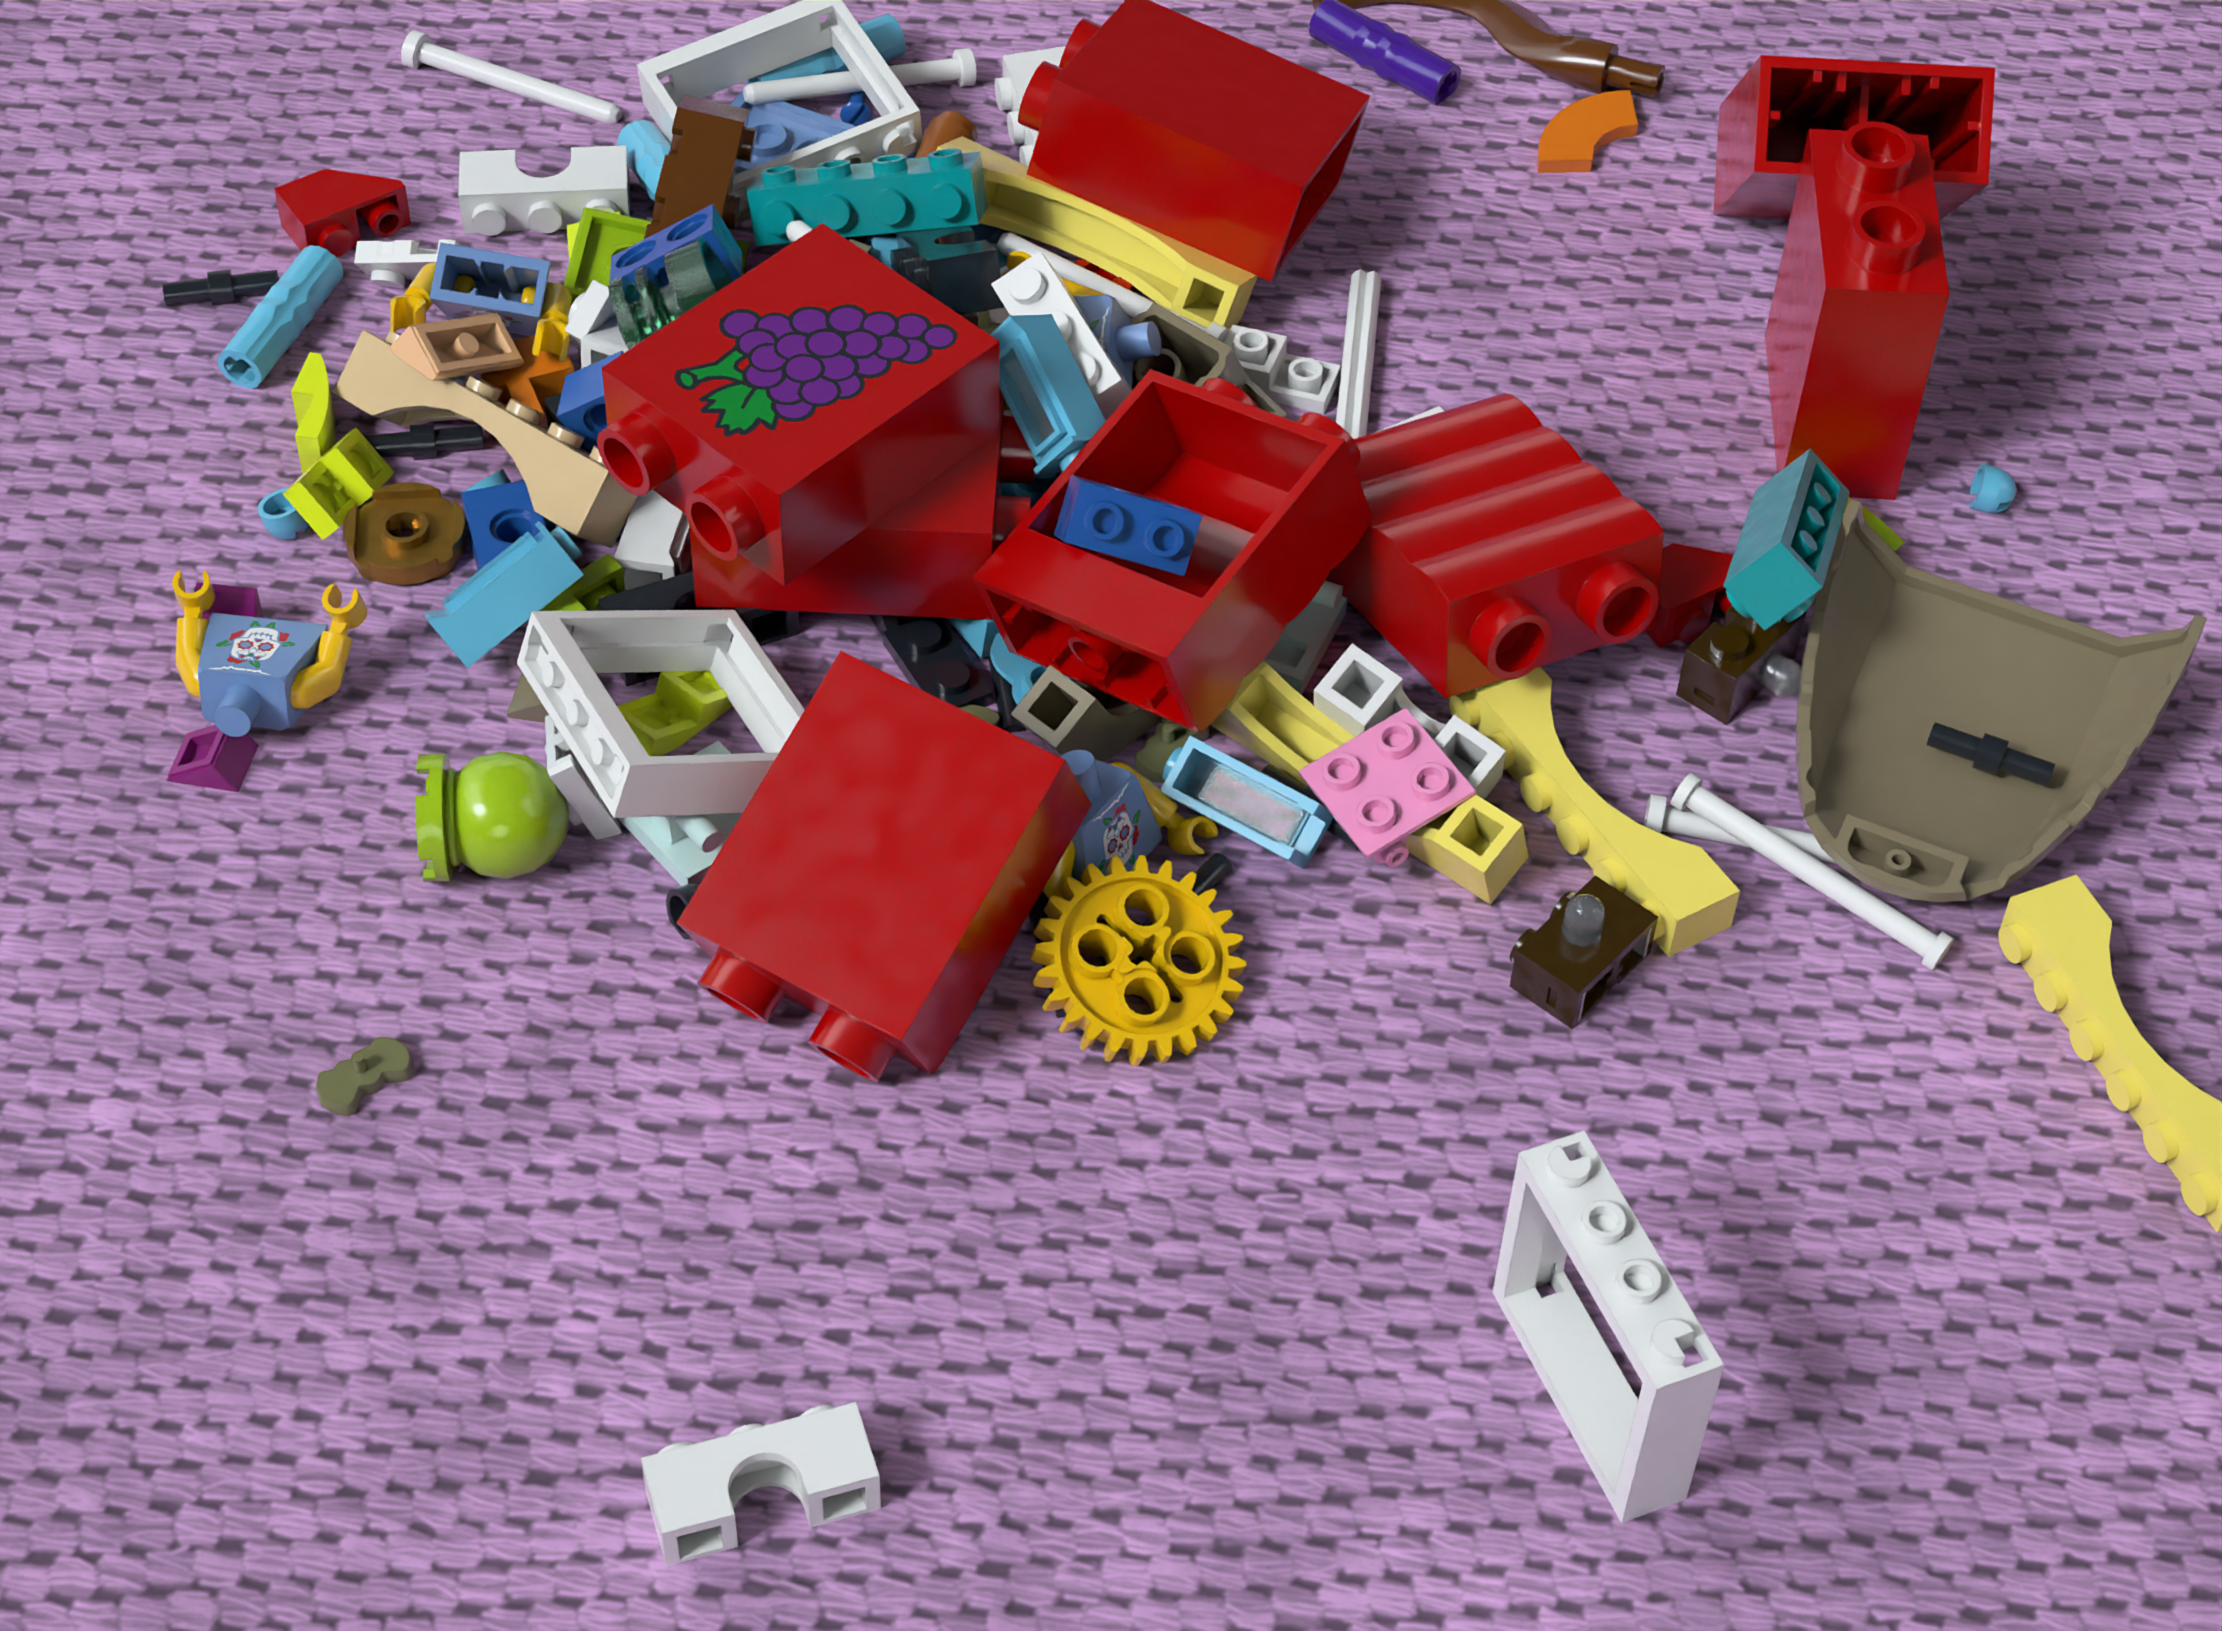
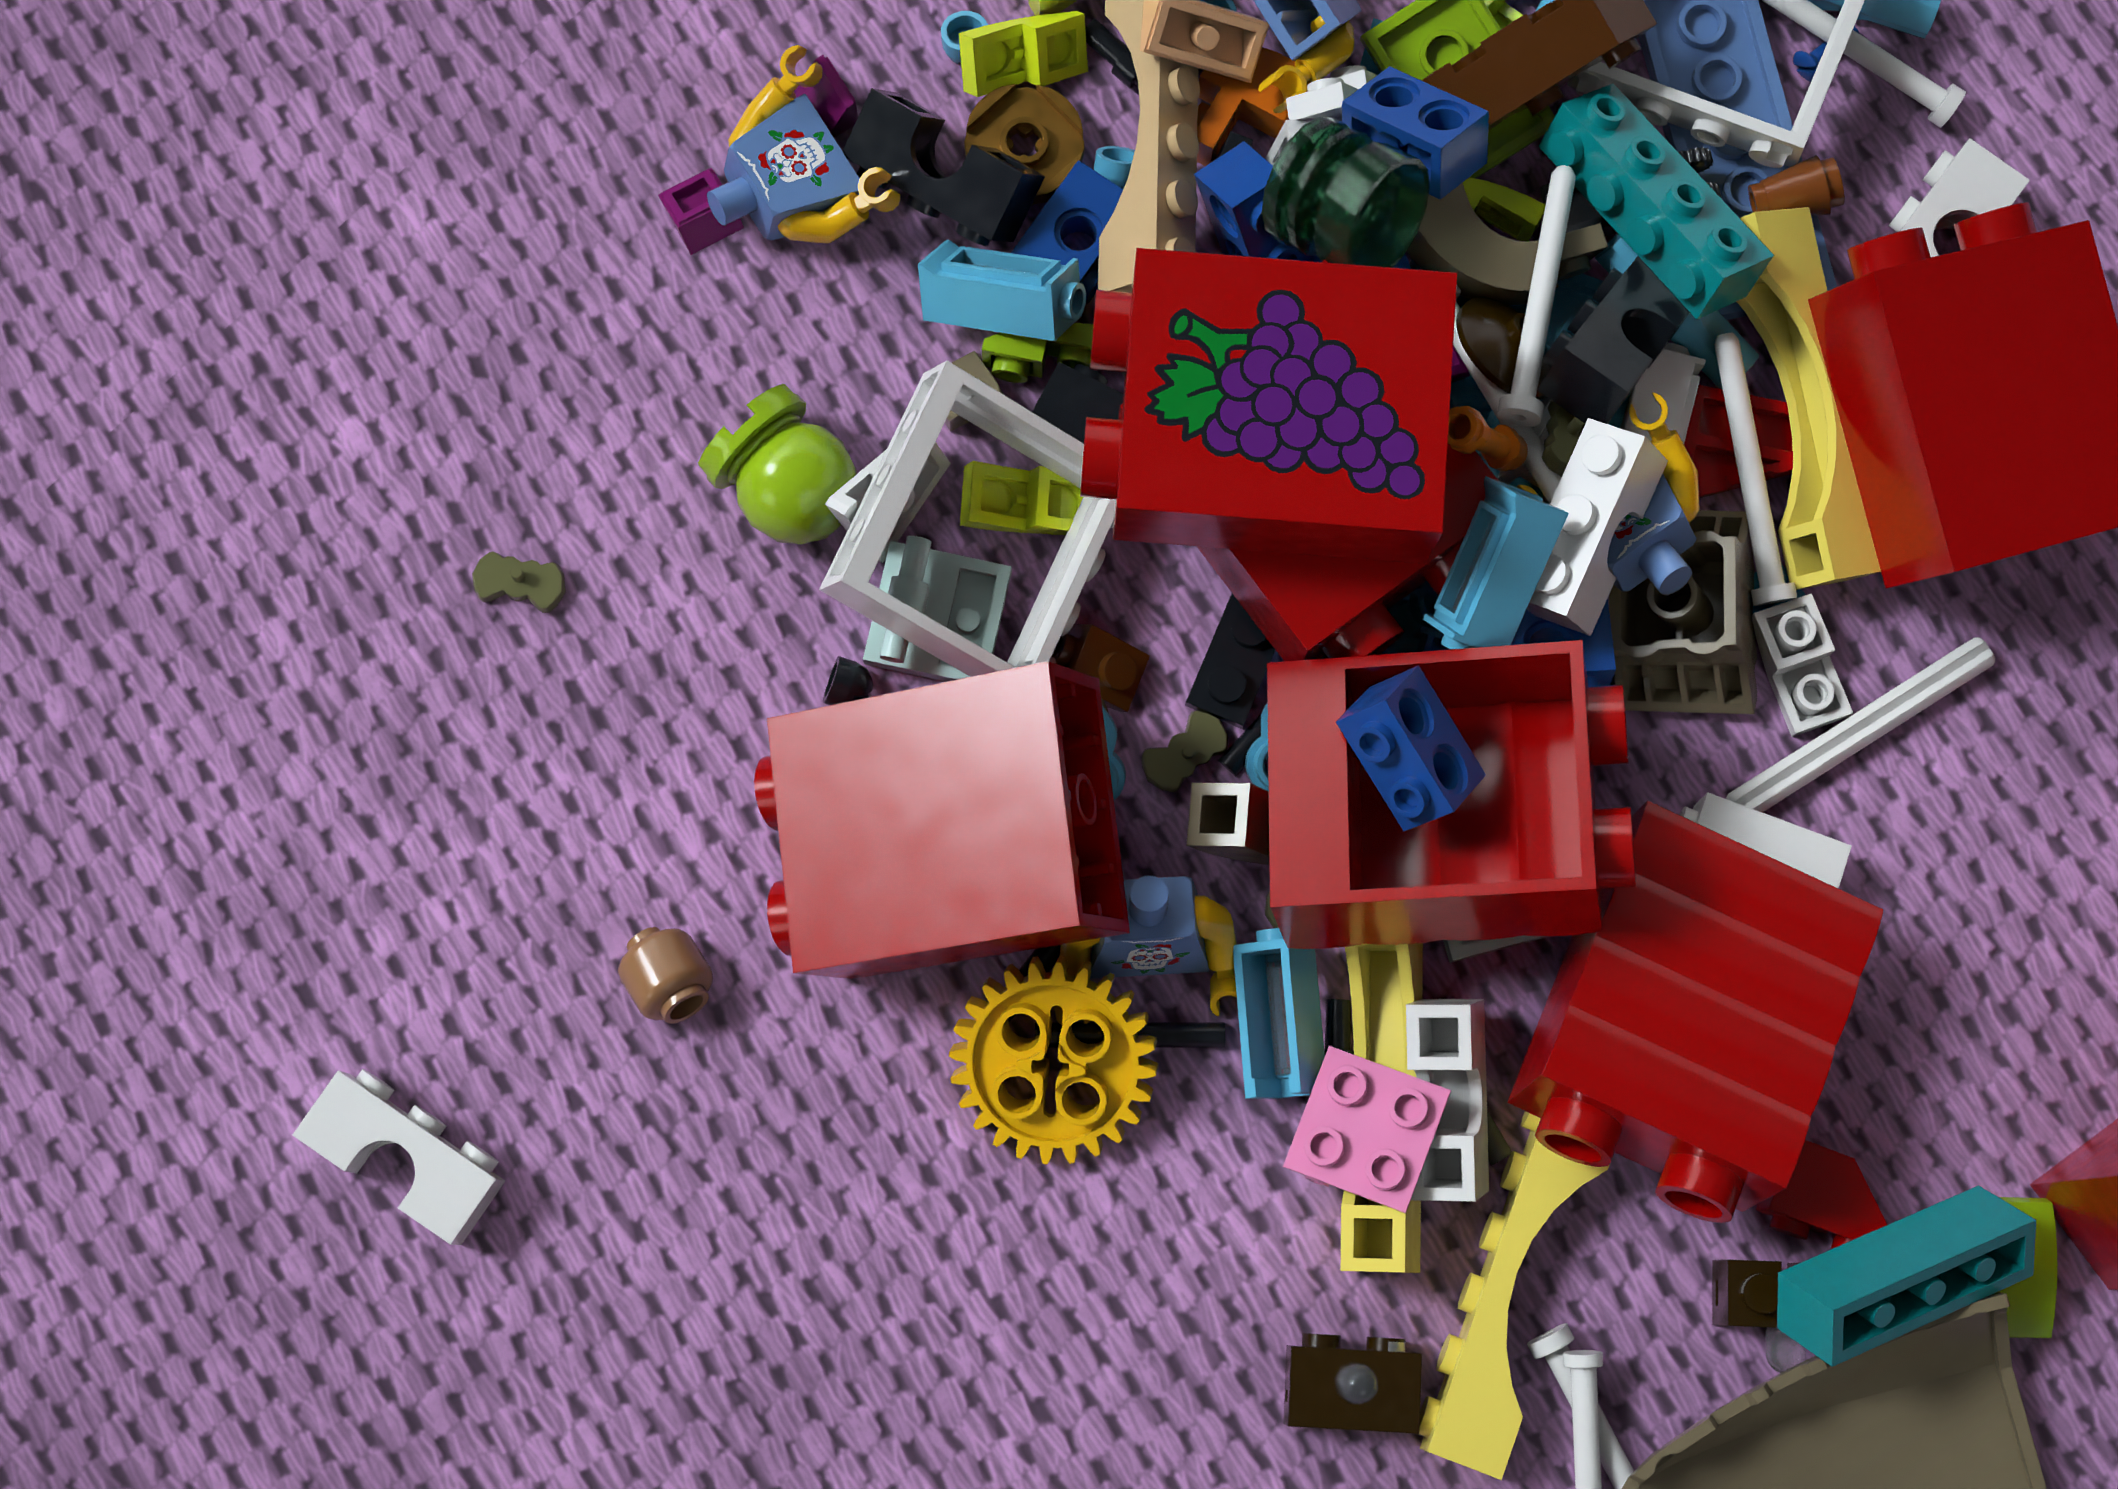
camera: 50 degrees right, 30 degrees up
(418, 566) = (985, 194): none -> black arch
(802, 1180) = (665, 974): none -> medium nougat head

